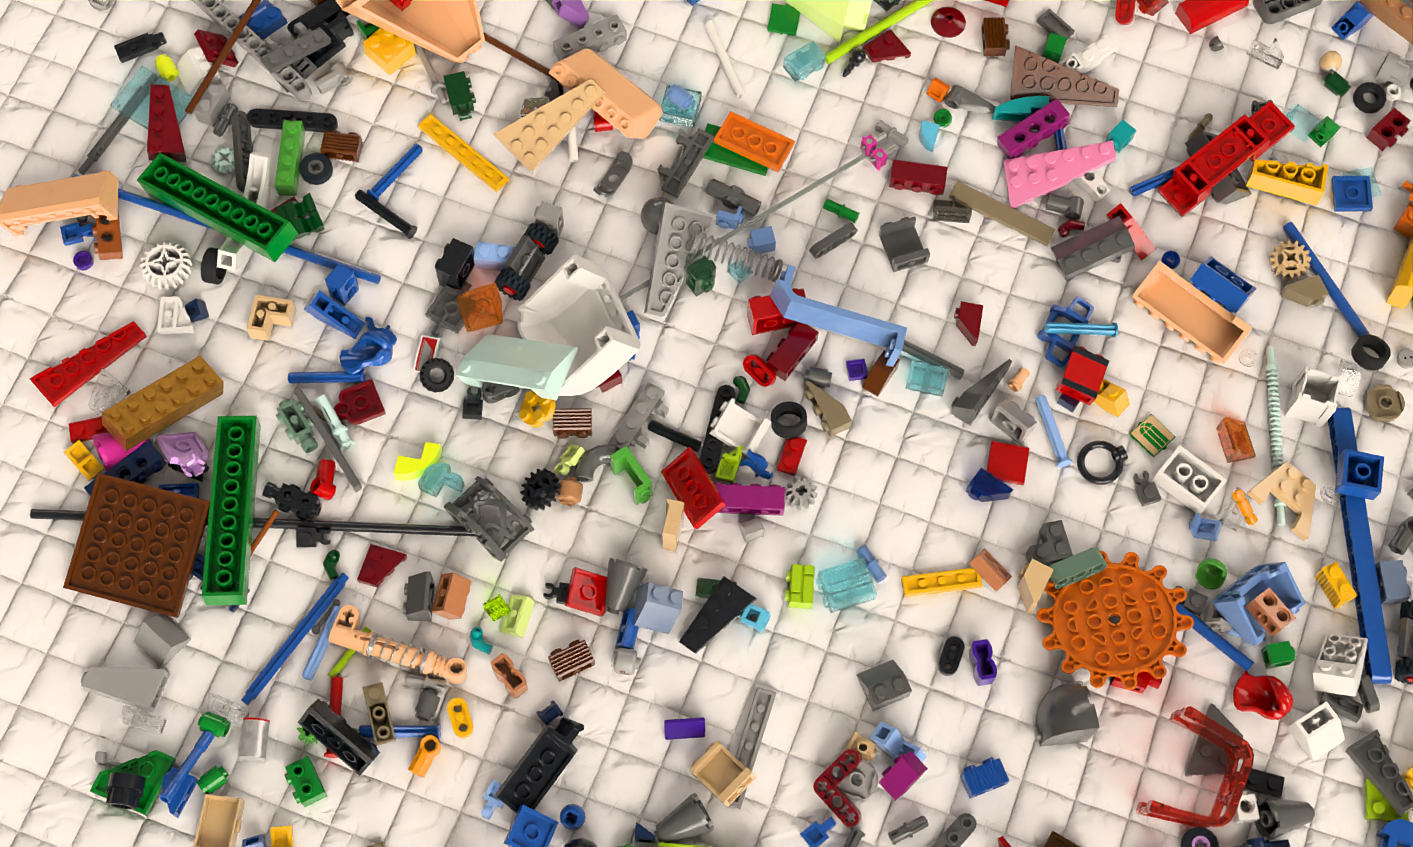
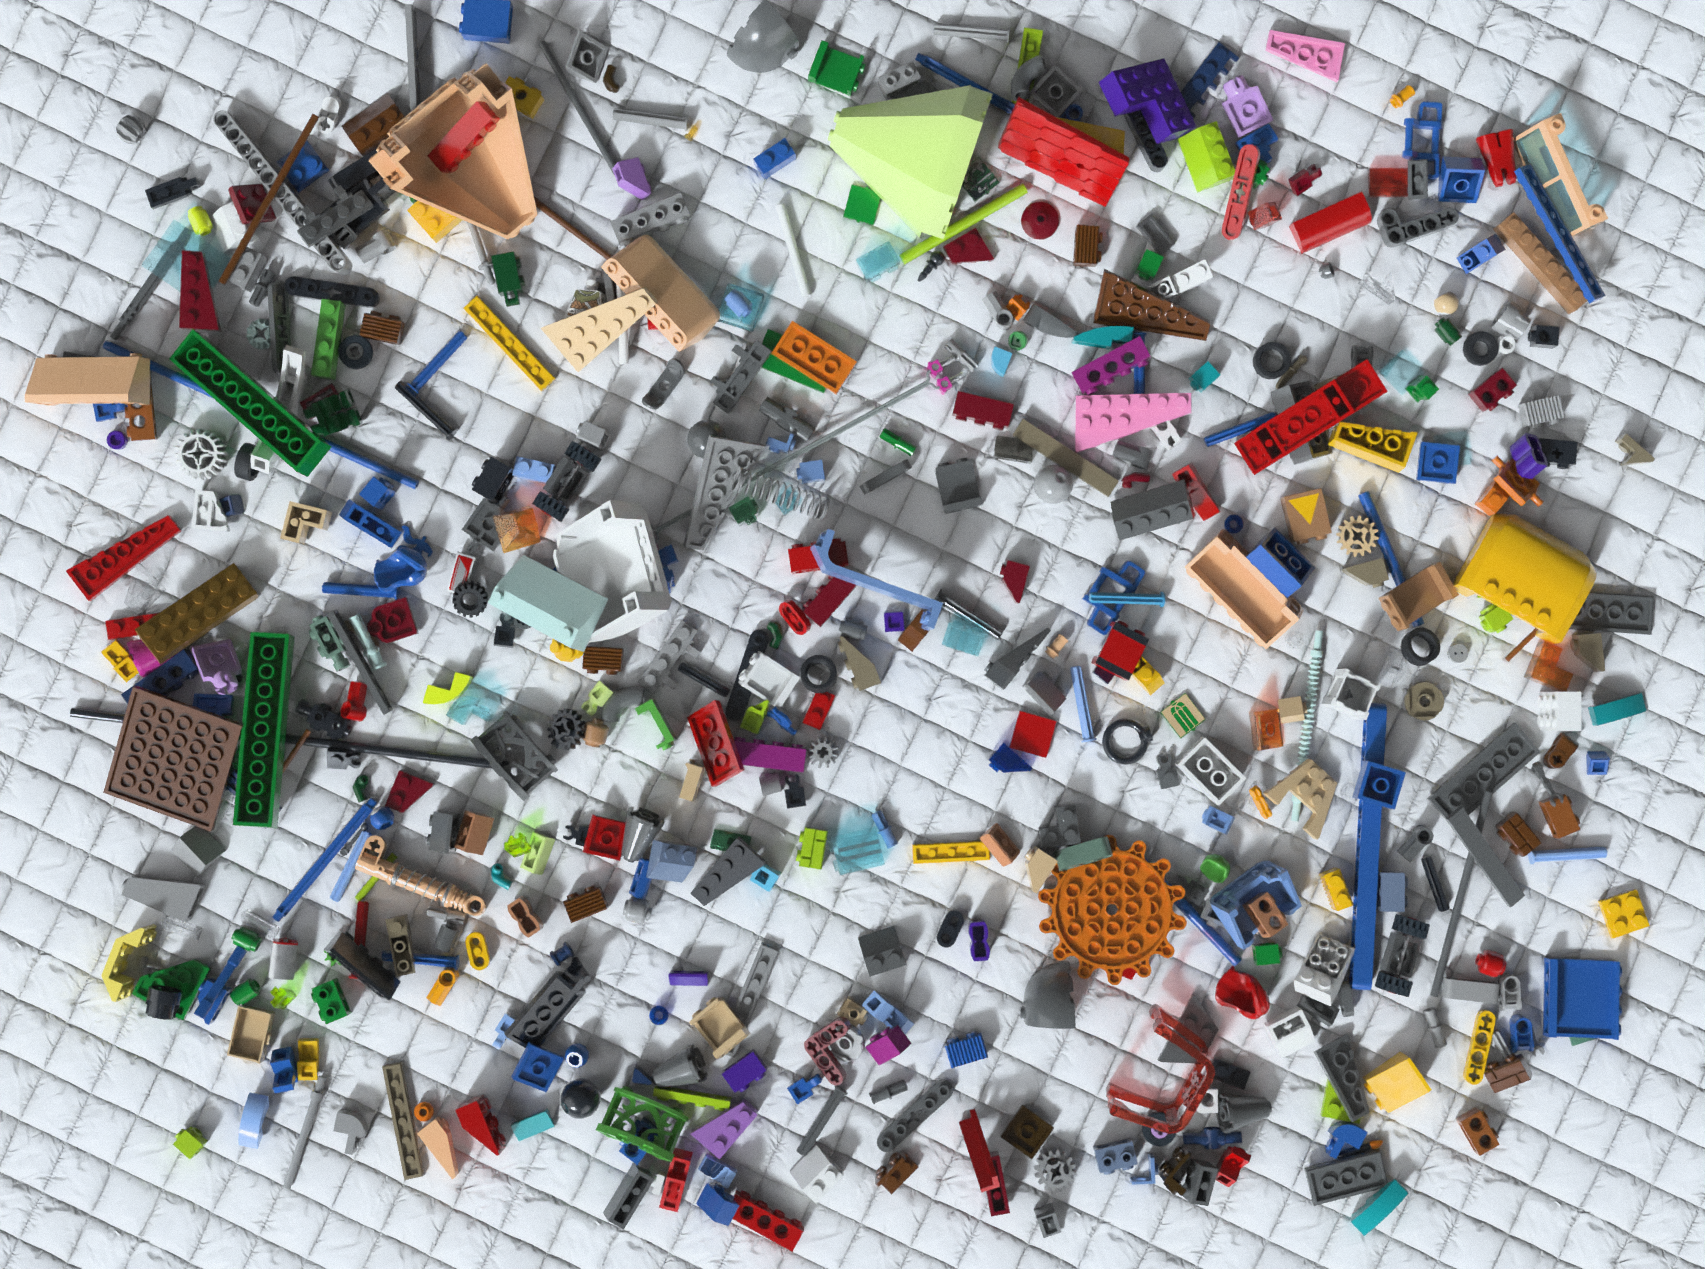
camera: 10 degrees right, 20 degrees up
(80, 741) = (117, 984): none -> light yellow slope
(253, 782) = (282, 997): none -> clear neon green tile
(355, 590) = (382, 818): none -> blue piece
(656, 763) = (658, 1021): none -> clear blue plate
(753, 819) = (744, 1071): none -> dark purple brick
(777, 536) = (795, 795): none -> black plate
(921, 94) = (998, 309): none -> light grey piece
(994, 233) = (1053, 484): none -> light grey piece
(1183, 107) = (1271, 346): none -> black tyre
(1238, 246) = (1306, 516): none -> medium nougat brick
(1258, 418) = (1292, 709): none -> tan brick
(1360, 306) = (1418, 596): none -> medium nougat panel

